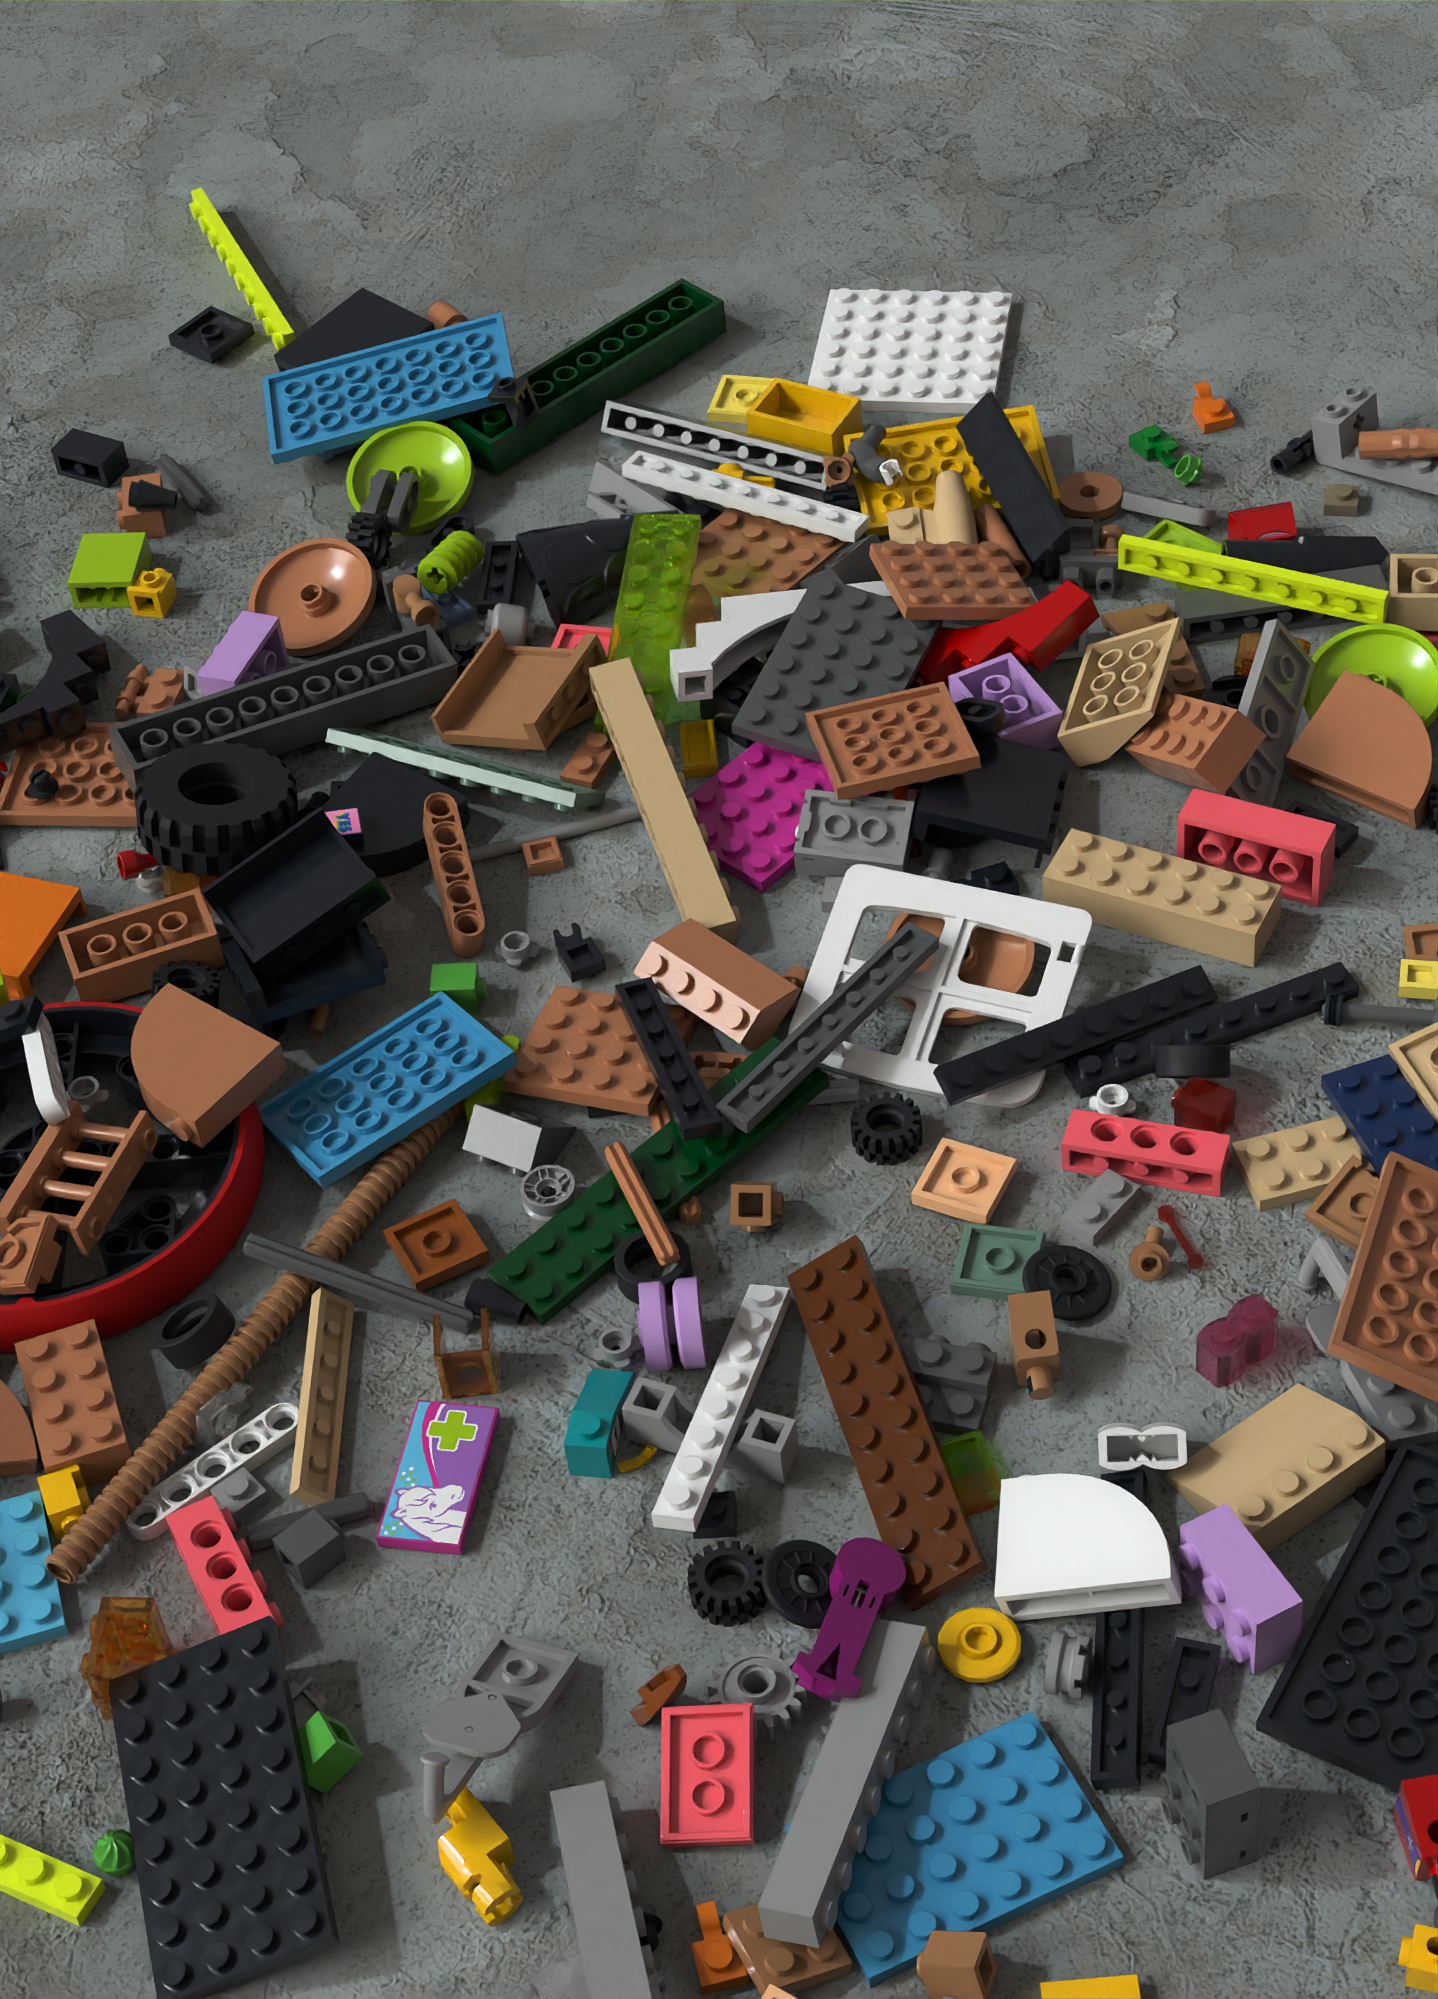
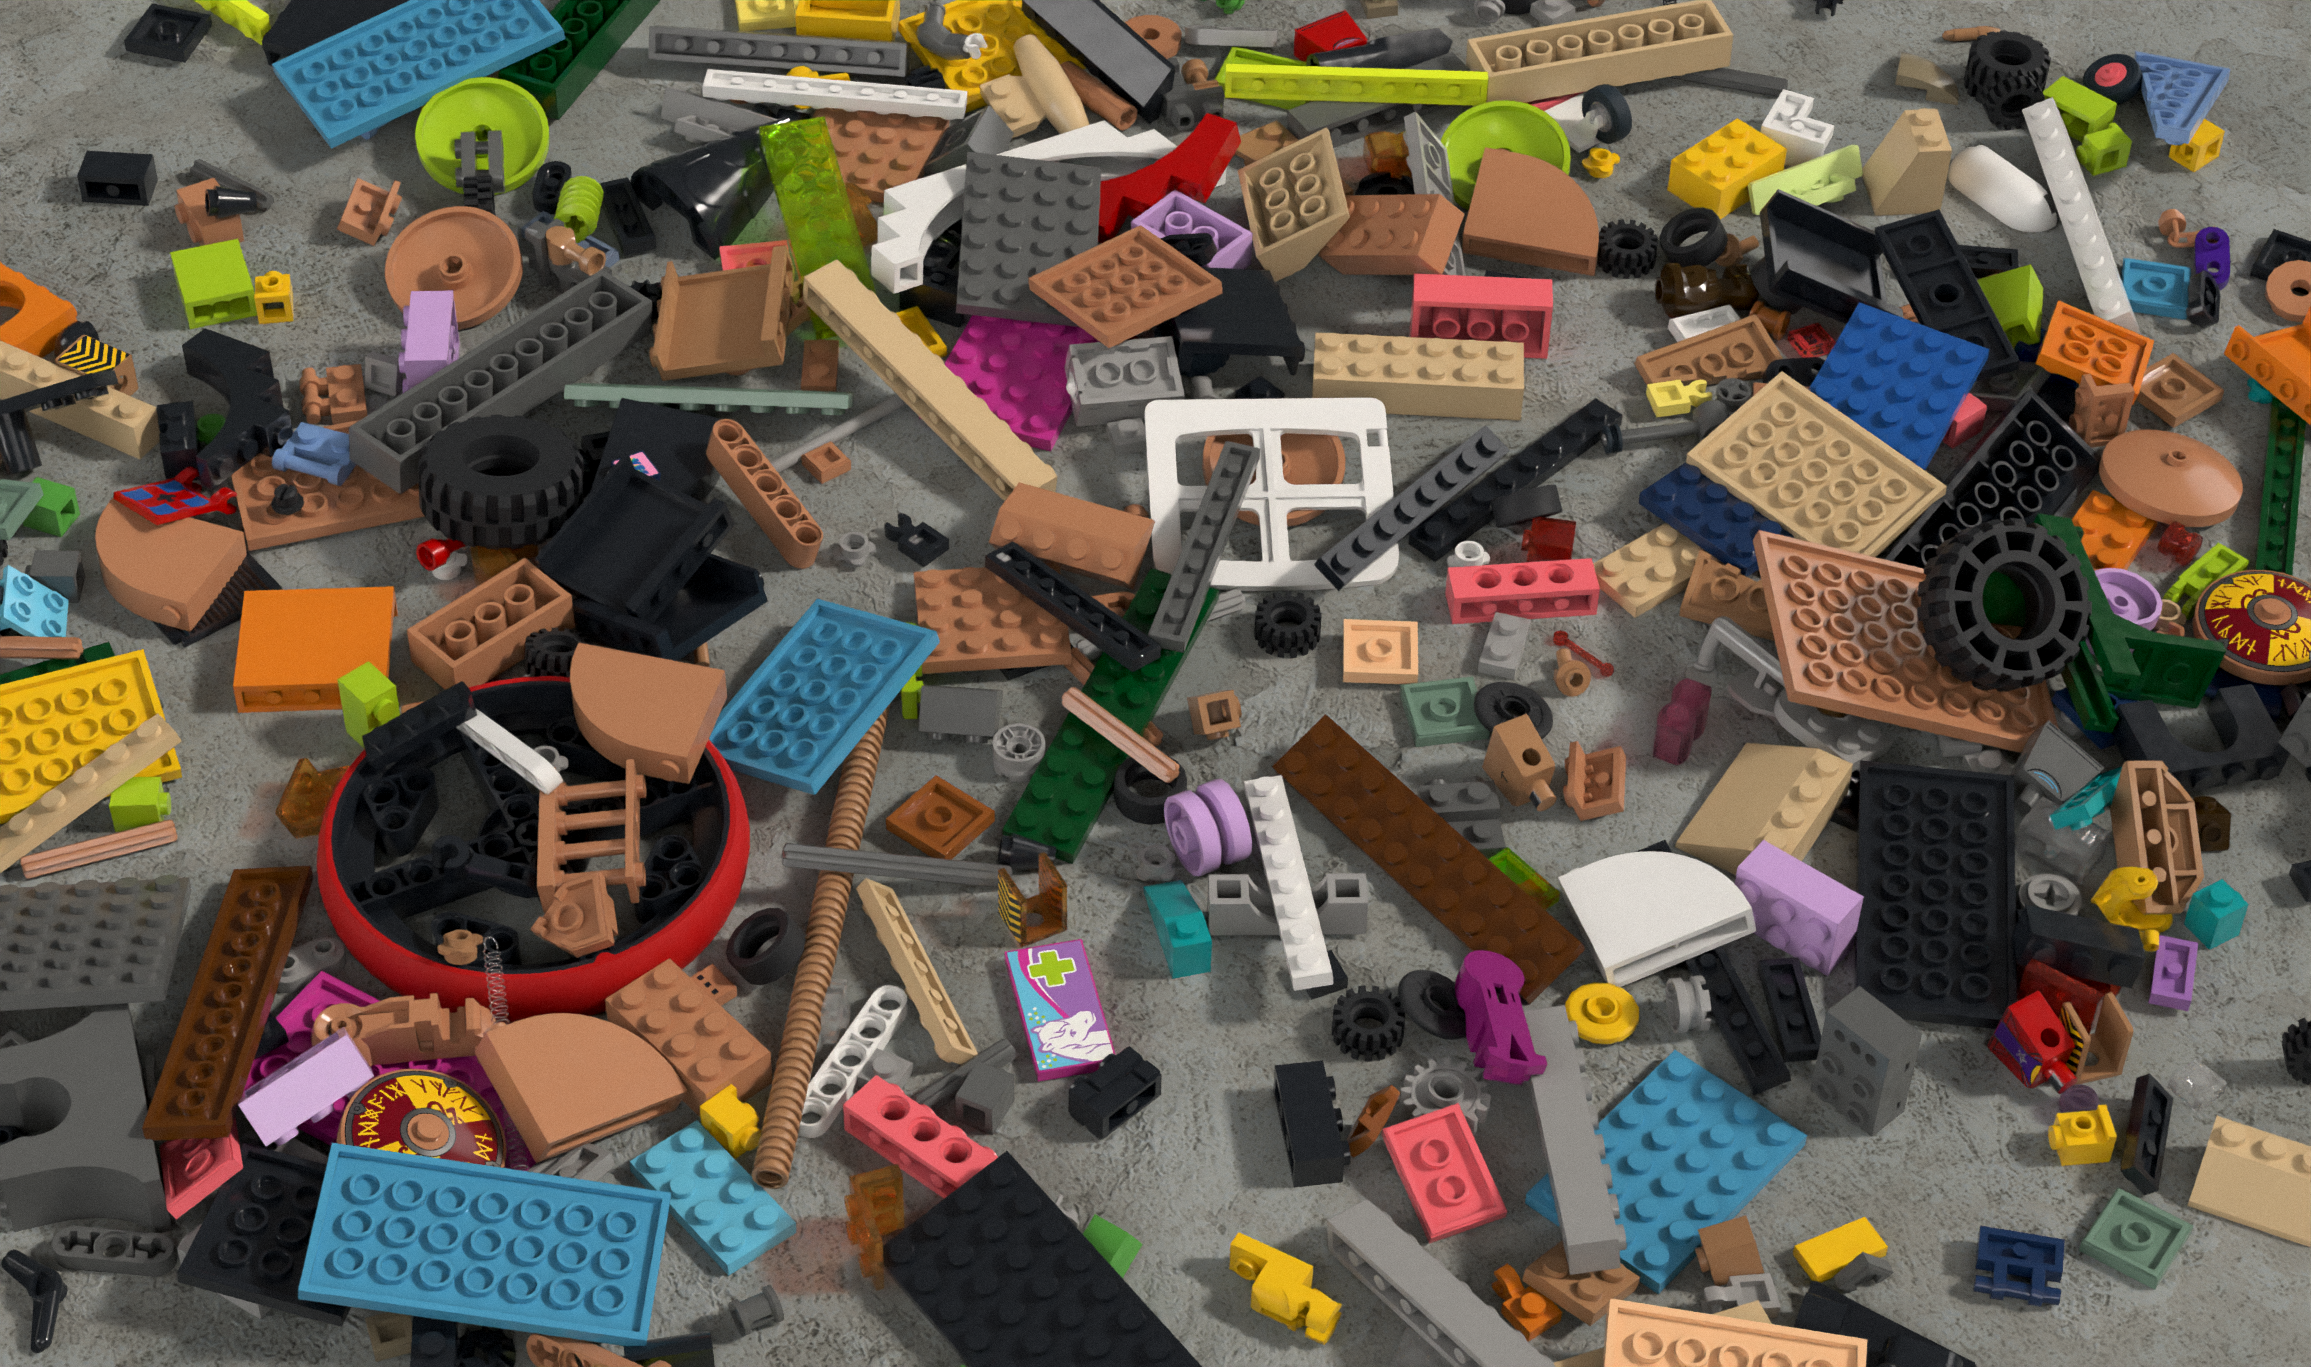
camera: 30 degrees left, 0 degrees up
(95, 739) = (316, 453): none -> medium blue plate
(131, 1359) = (715, 984): none -> nougat tile
(278, 528) = (368, 211): none -> nougat bracket
(434, 1581) = (1114, 1092): none -> black brick
(461, 984) = (822, 585): bright green brick -> none
(494, 1703) = (1244, 1168): light grey plate -> none
(512, 623) = (666, 249): light grey head -> none
(518, 400) = (568, 37): black bracket -> none
(605, 1676) = (1310, 1123): none -> black brick
(647, 1452) = (1234, 942): yellow leg -> none
(846, 463) = (922, 45): medium nougat plate -> none
(951, 580) = (1089, 134): nougat plate -> none
(1107, 1381) = (1595, 781): none -> nougat bracket
(1129, 1446) = (1657, 820): white brick -> none

